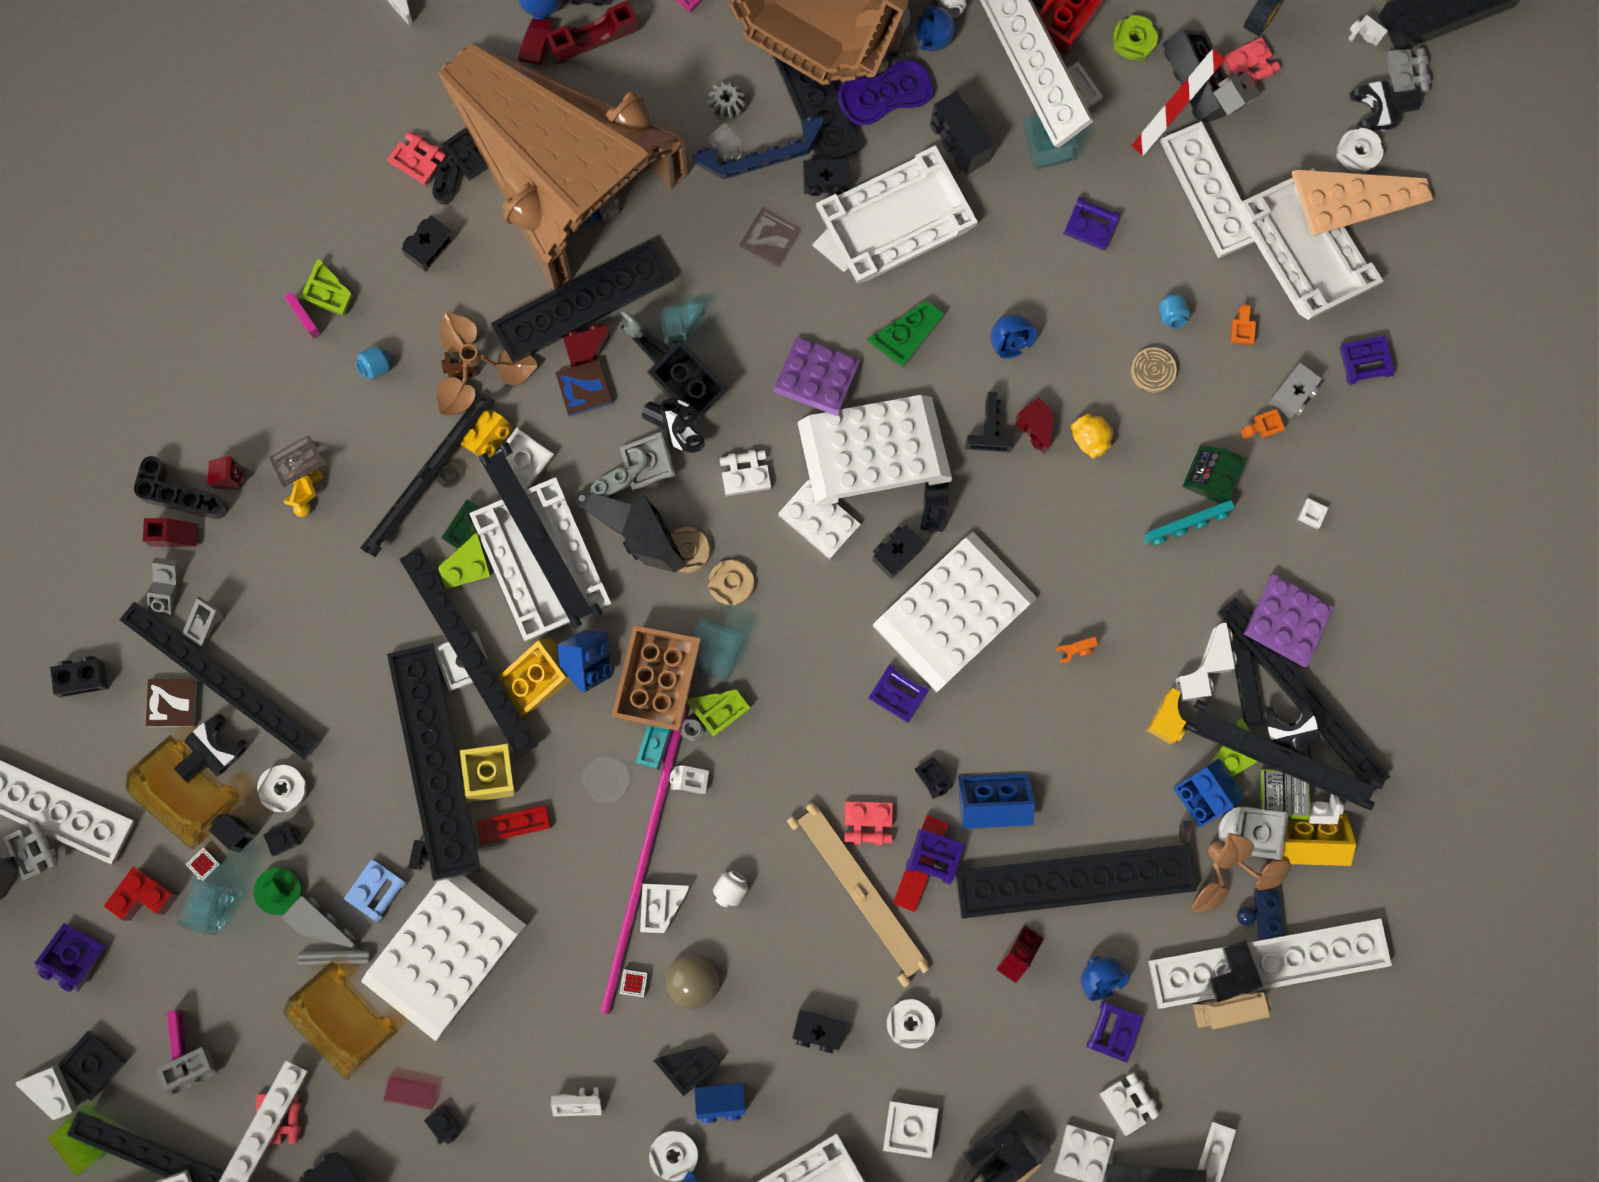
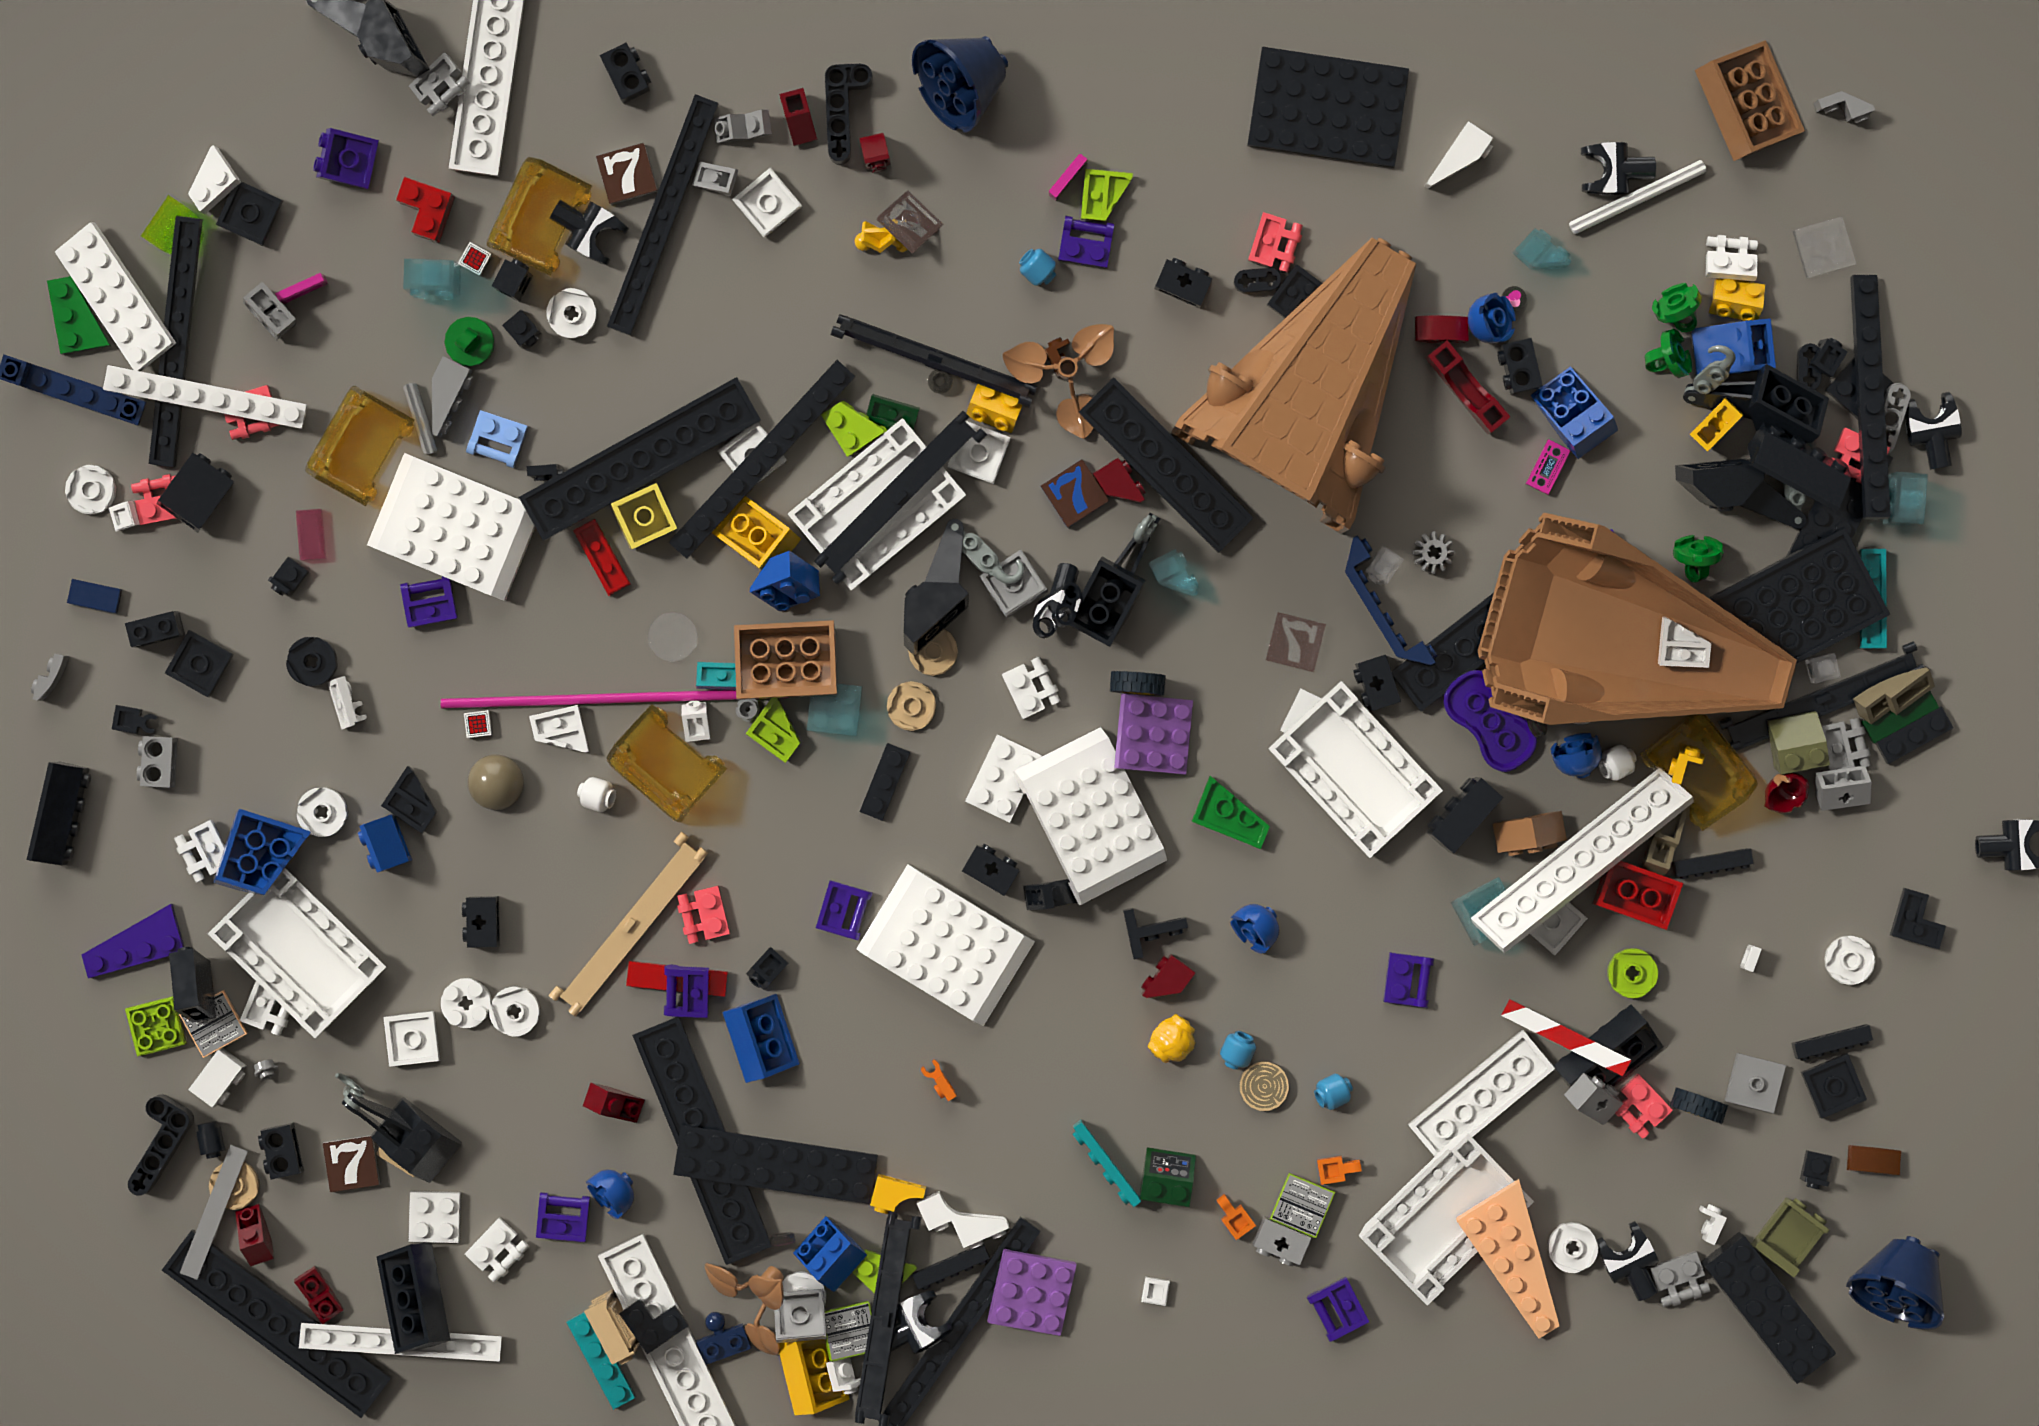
camera: 80 degrees right, 10 degrees up
(182, 382) = (959, 78): none -> dark blue cone
(239, 583) = (767, 202): none -> white plate
(314, 84) = (1328, 107): none -> black plate
(372, 320) = (1085, 250): none -> dark purple plate
(514, 997) = (431, 609): none -> dark purple plate
(521, 1137) = (317, 648): none -> black plate
(722, 819) = (664, 765): none -> clear yellow windscreen
(767, 375) = (1137, 683): none -> black wheel
(792, 625) = (884, 781): none -> black plate
(901, 1059) = (457, 1014): none -> white plate
(992, 81) = (1530, 833): none -> medium nougat brick
(1115, 820) = (775, 1164): none -> black plate
(1116, 381) = (1238, 1050): none -> dark azure head
(1255, 1033) = (609, 1376): none -> teal plate
(1267, 365) = (1302, 1205): none -> light grey tile

